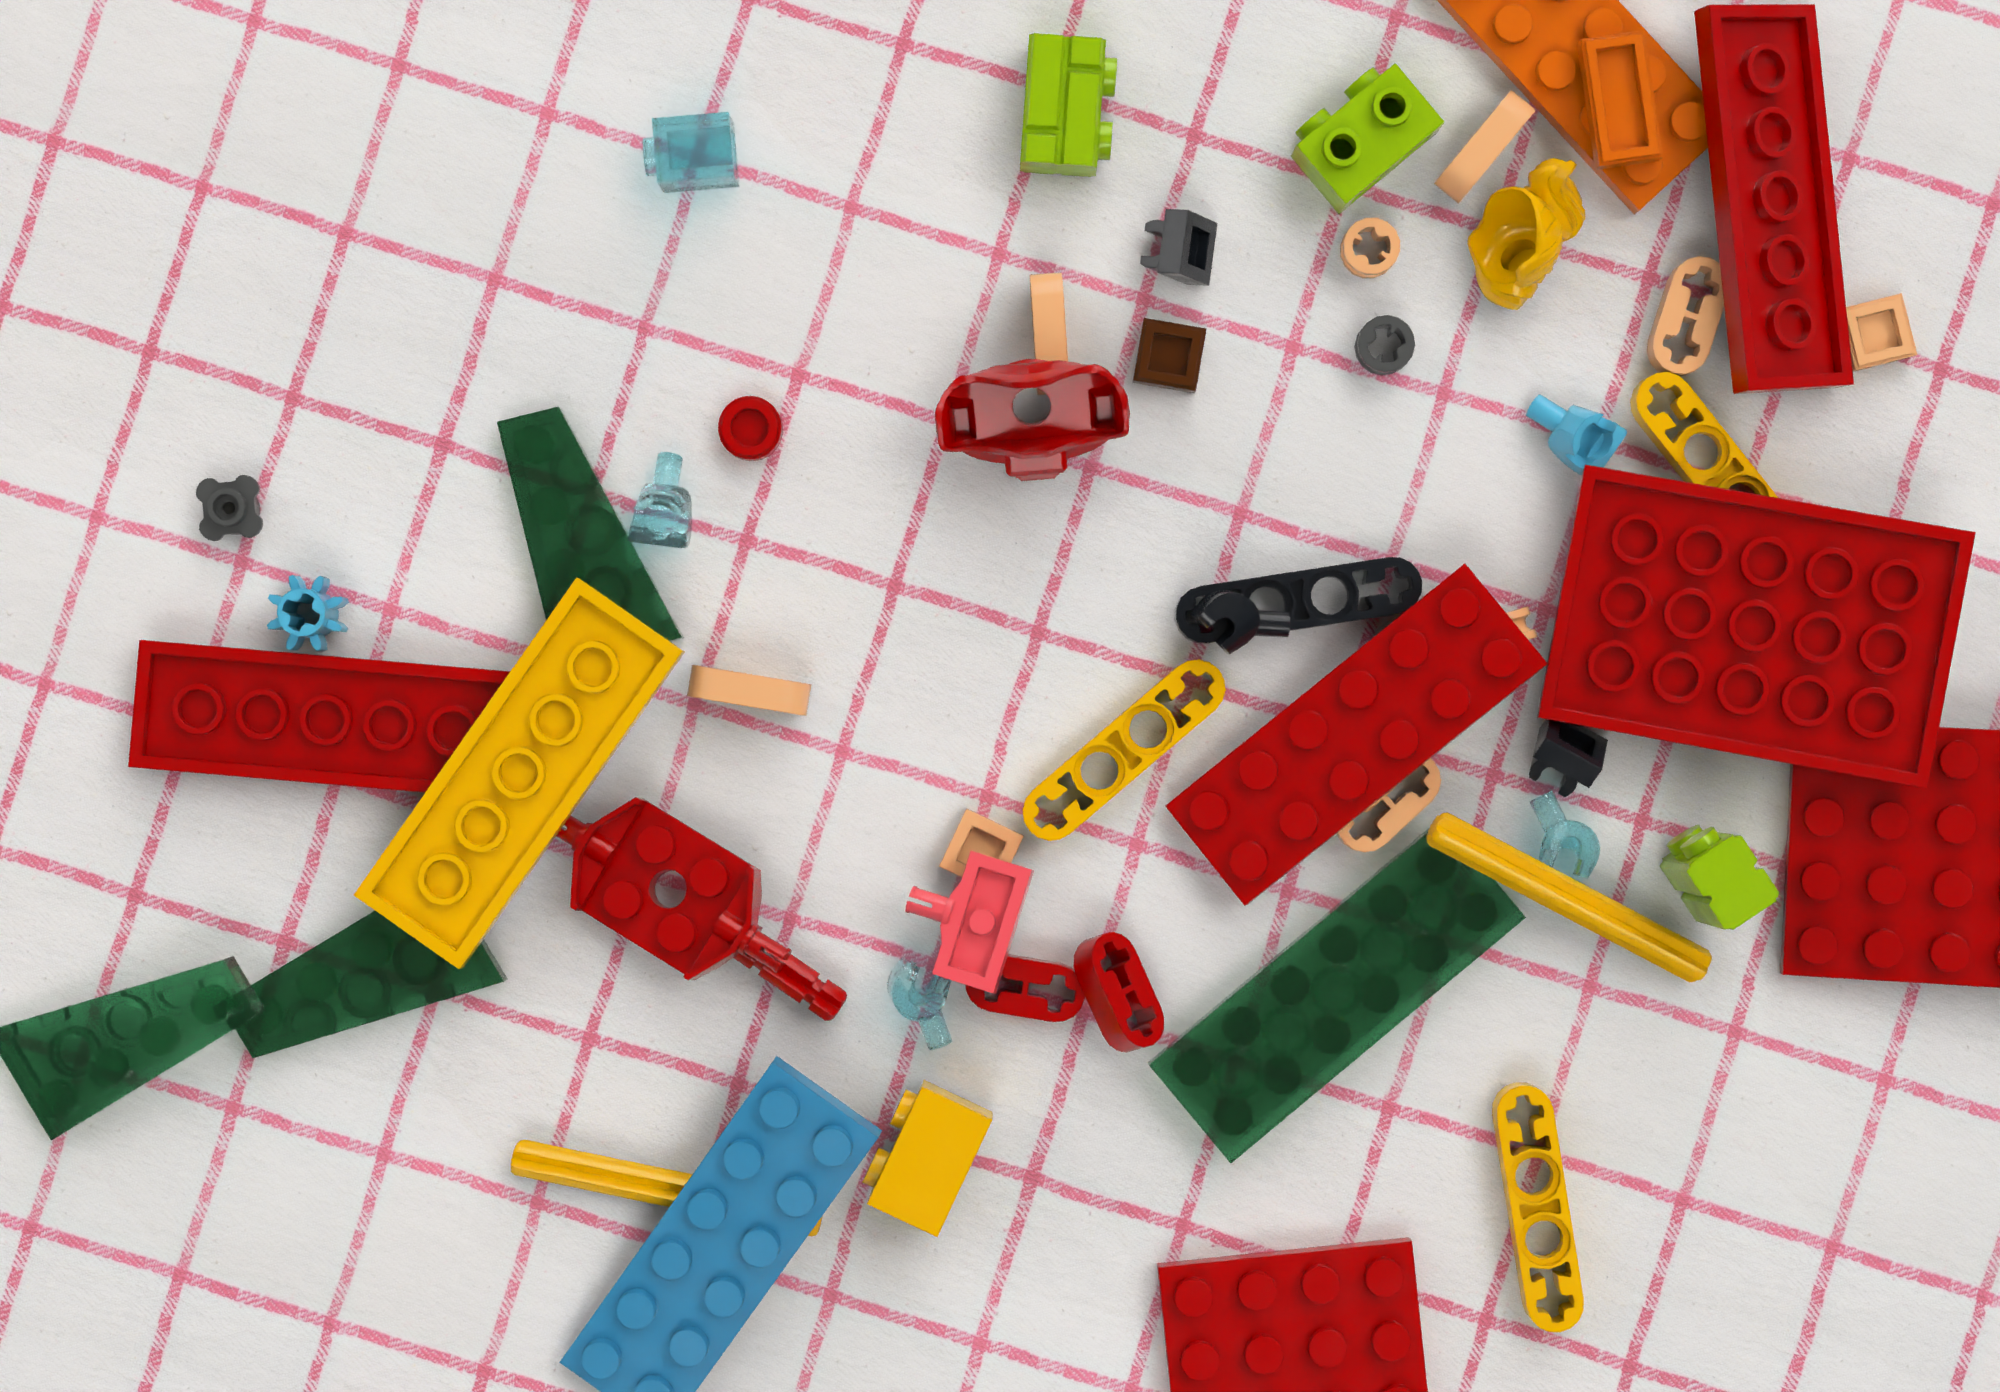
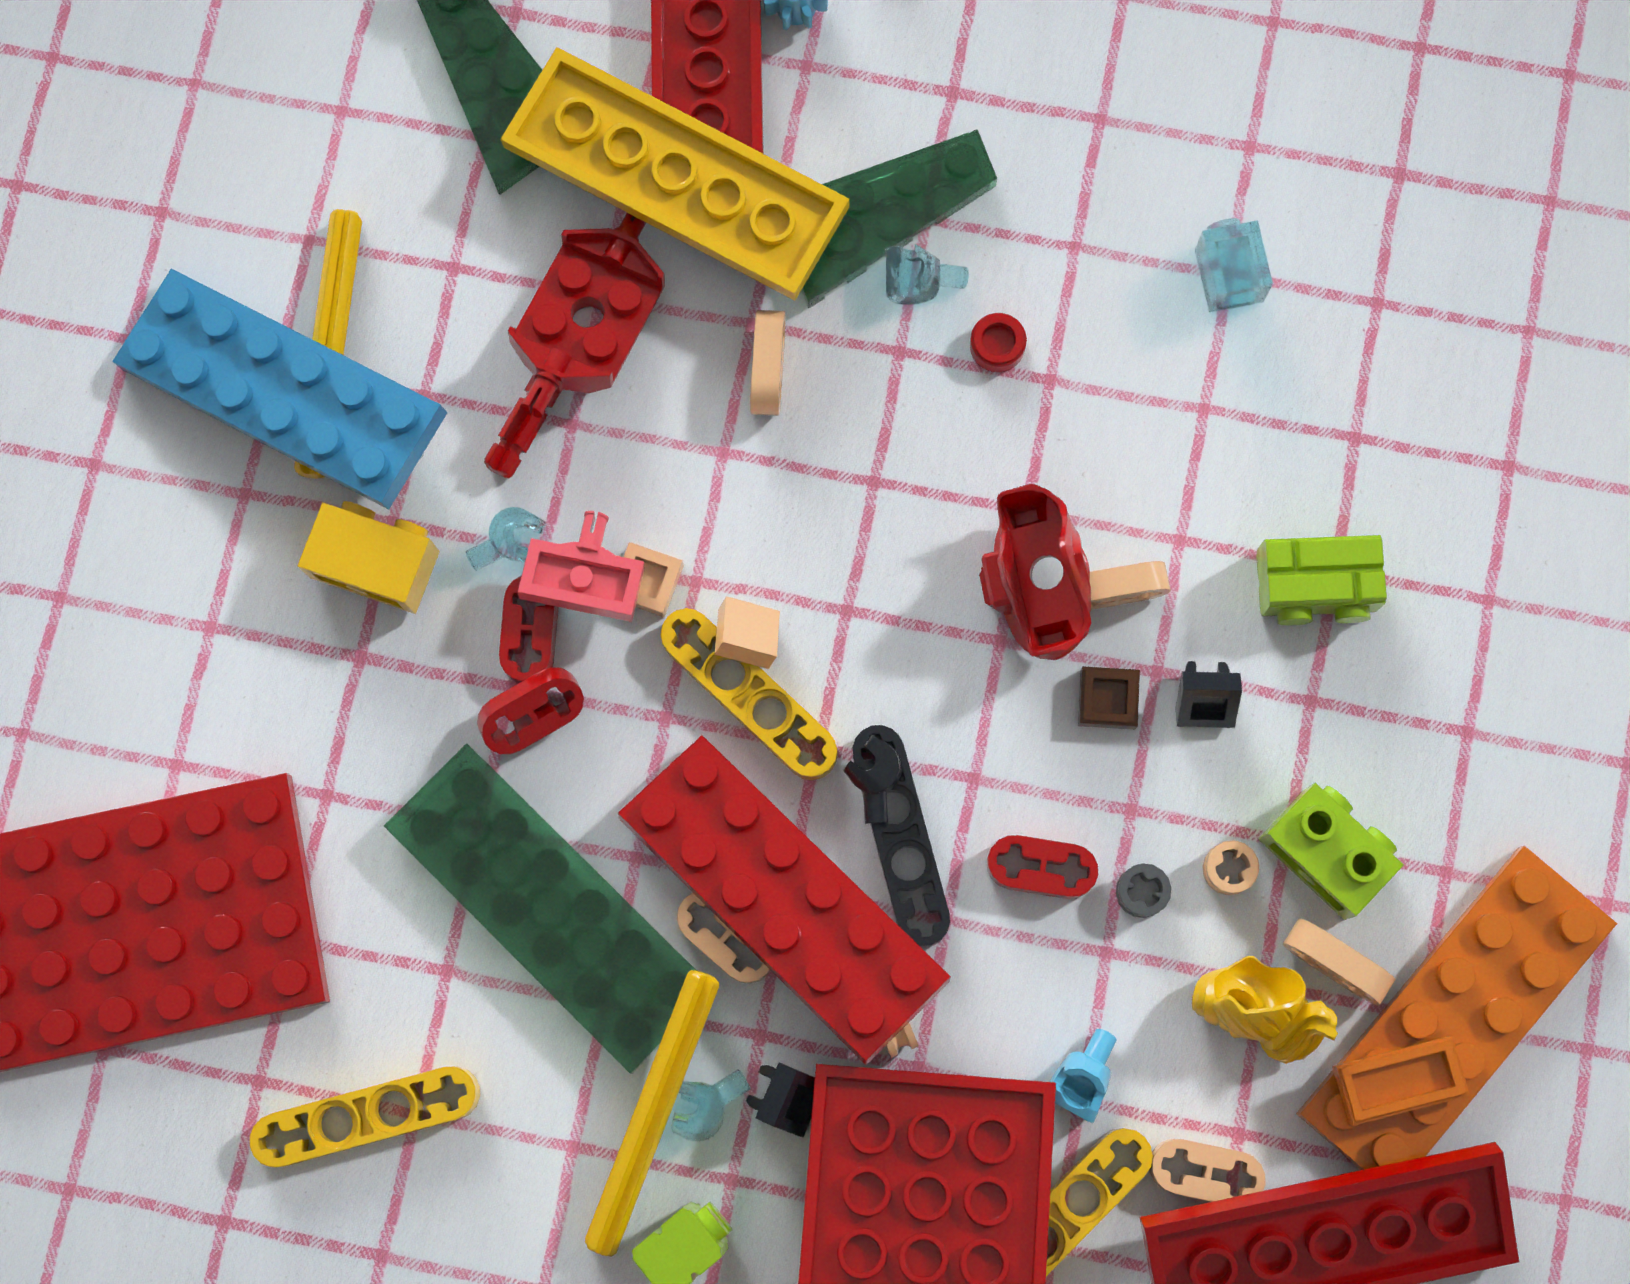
camera: 85 degrees right, 10 degrees down
(1058, 744) = (747, 632): none -> light nougat tile
(1362, 455) = (1045, 853): none -> red beam

